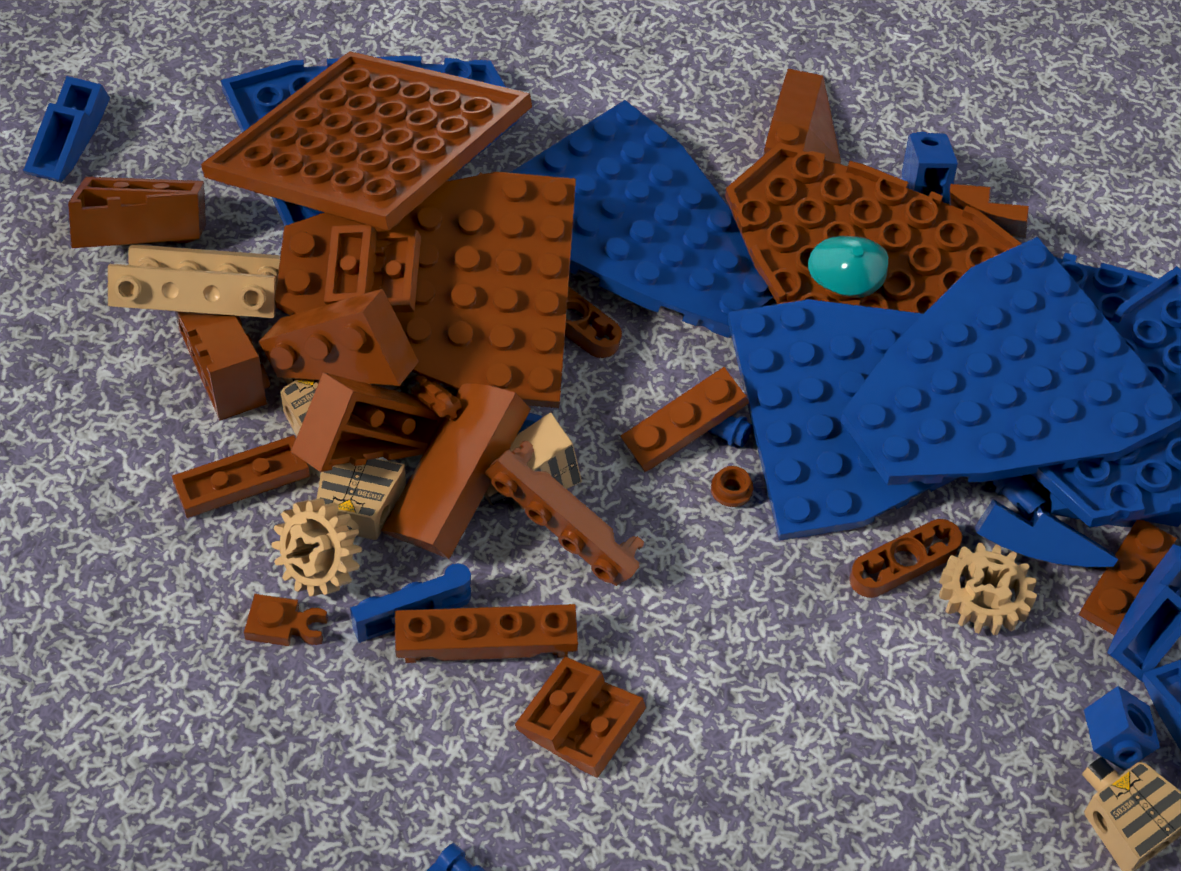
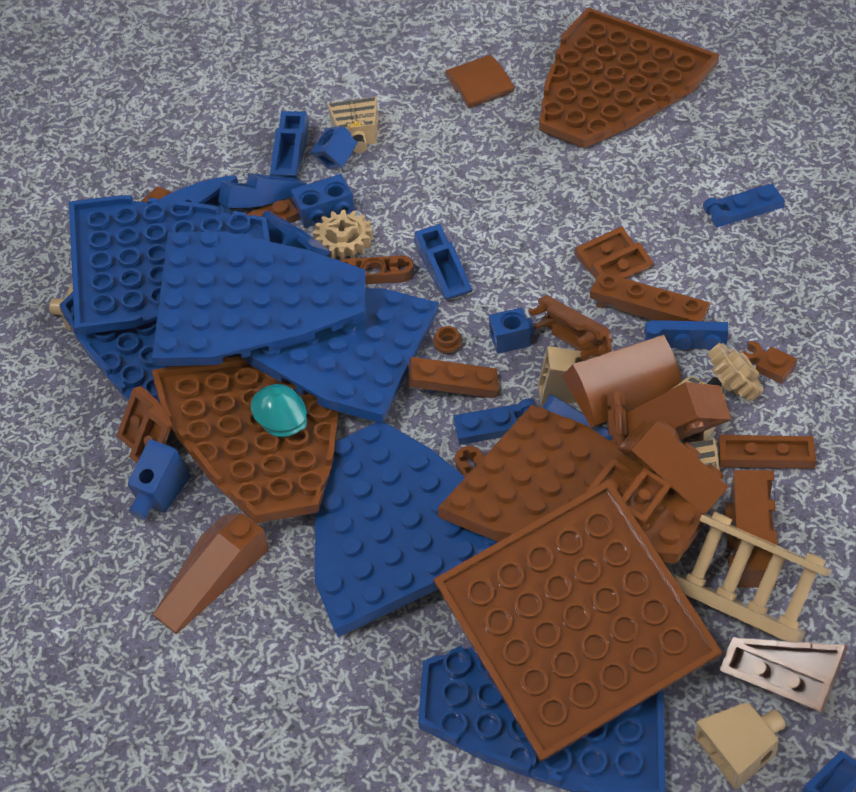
camera: 145 degrees left, 5 degrees down
(165, 146) = (740, 740): none -> tan torso
(602, 398) = (488, 423): none -> blue plate
(657, 506) = (510, 330): none -> blue brick
(820, 600) = (442, 262): none -> blue slope
(1066, 638) = (321, 199): none -> blue brick

